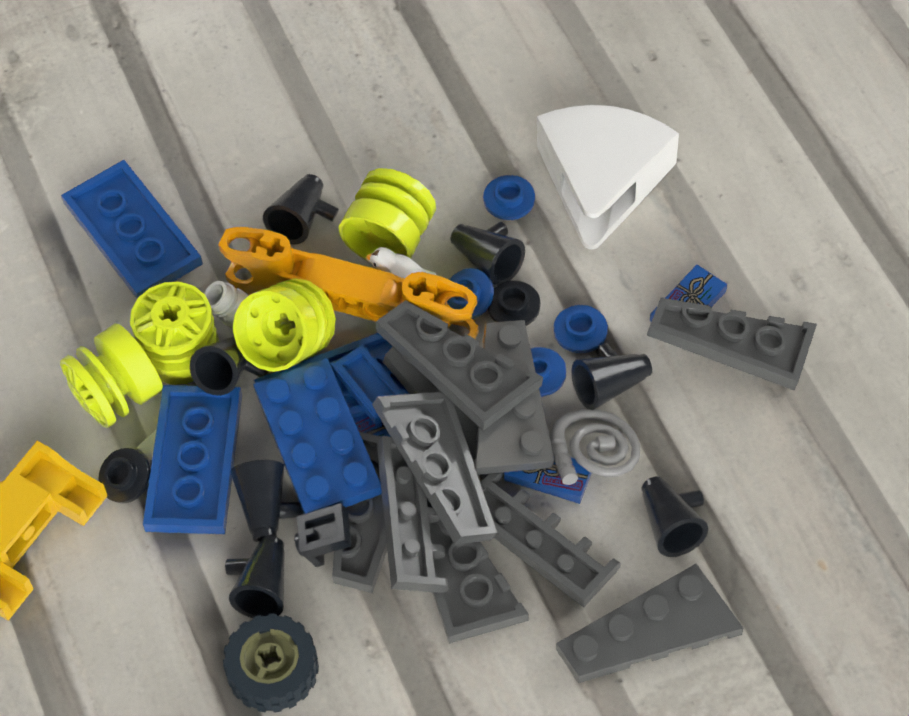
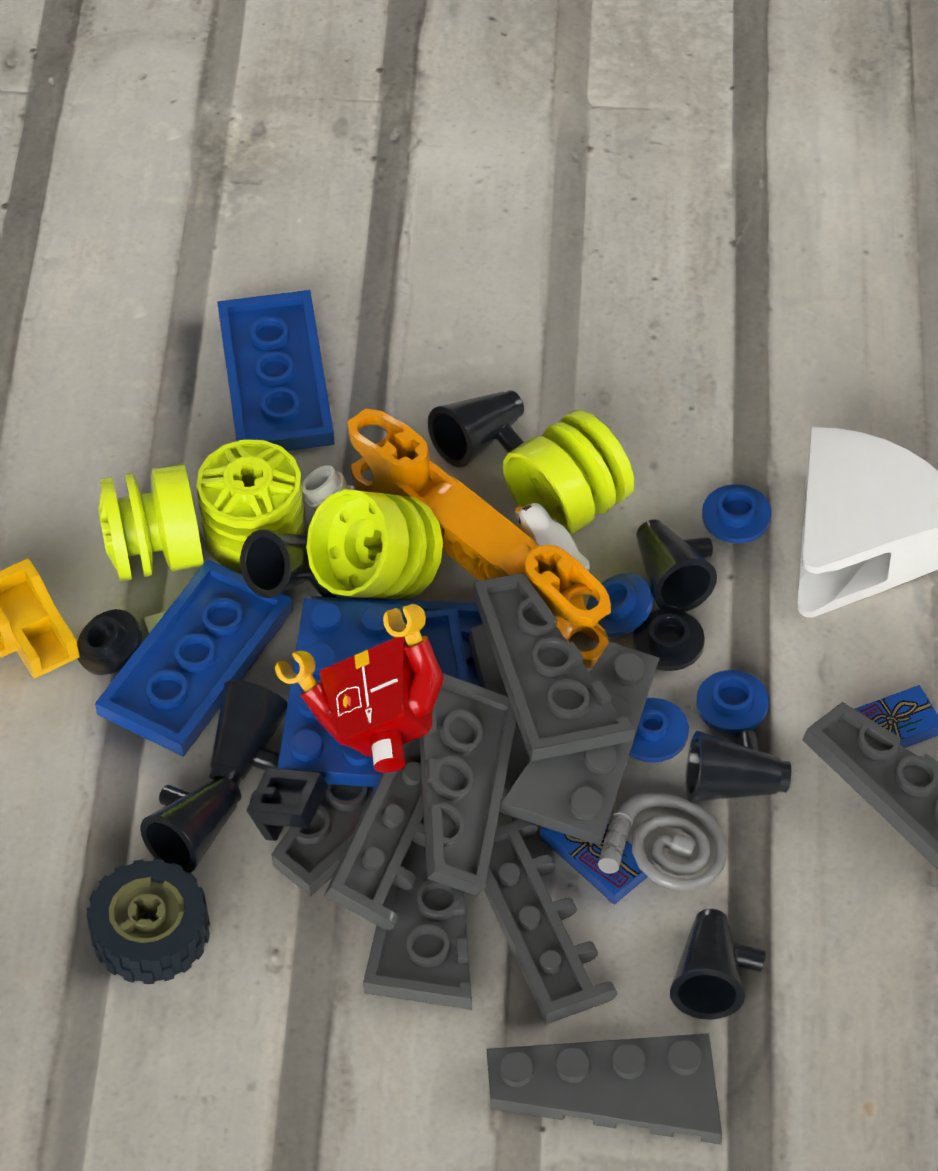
camera: 25 degrees right, 5 degrees down
(357, 431) = (377, 695): none -> red torso

